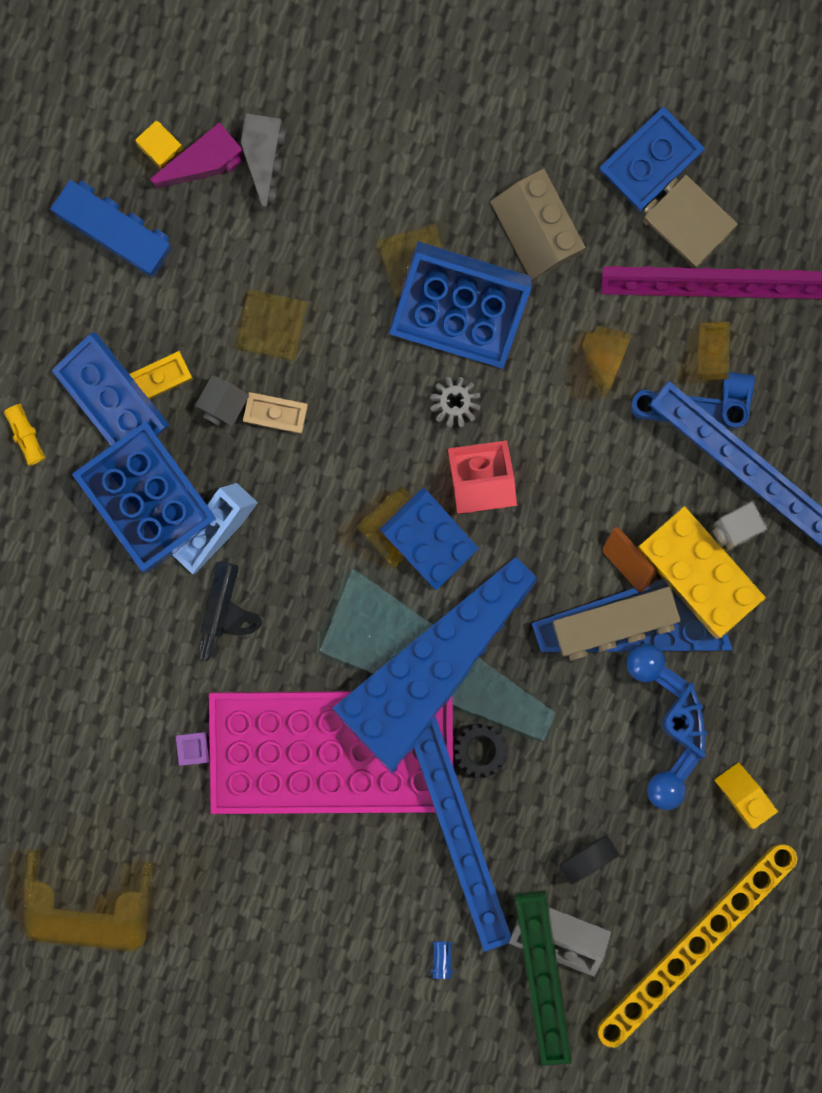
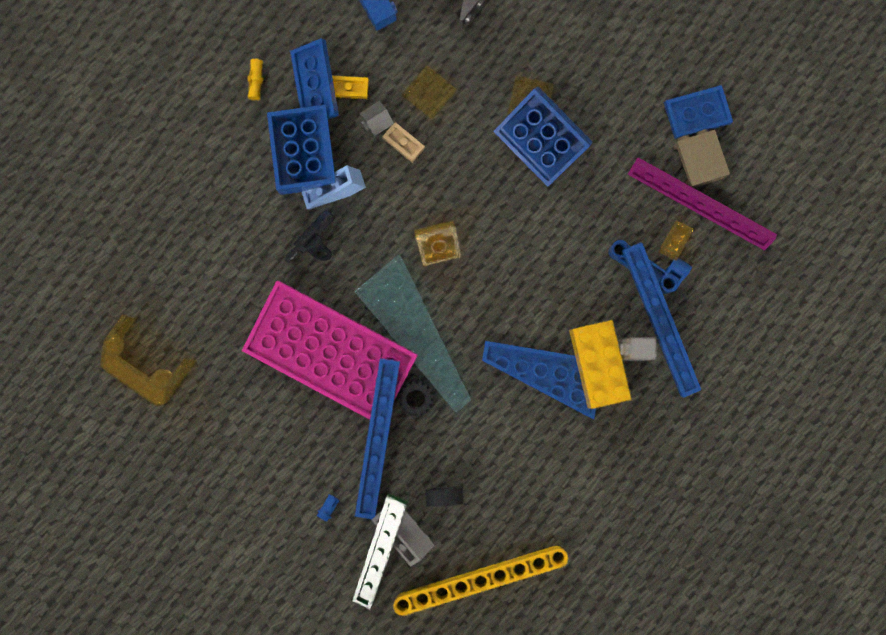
camera: 30 degrees right, 0 degrees up
(192, 748) = (251, 307): medium lavender plate -> none
(410, 689) = (393, 340): blue wing -> none
(429, 538) = (452, 259): blue plate -> none
(455, 412) = (506, 196): light grey gear -> none
(482, 477) = (502, 242): coral slope -> none
(538, 224) = (612, 114): dark tan slope -> none
(604, 355) = (611, 208): clear yellow slope -> none
(616, 622) = (534, 366): dark tan brick -> none
(629, 560) = (562, 335): dark orange slope -> none
(667, 788) = (512, 479): blue piece -> none
(745, 796) = (556, 509): yellow slope -> none

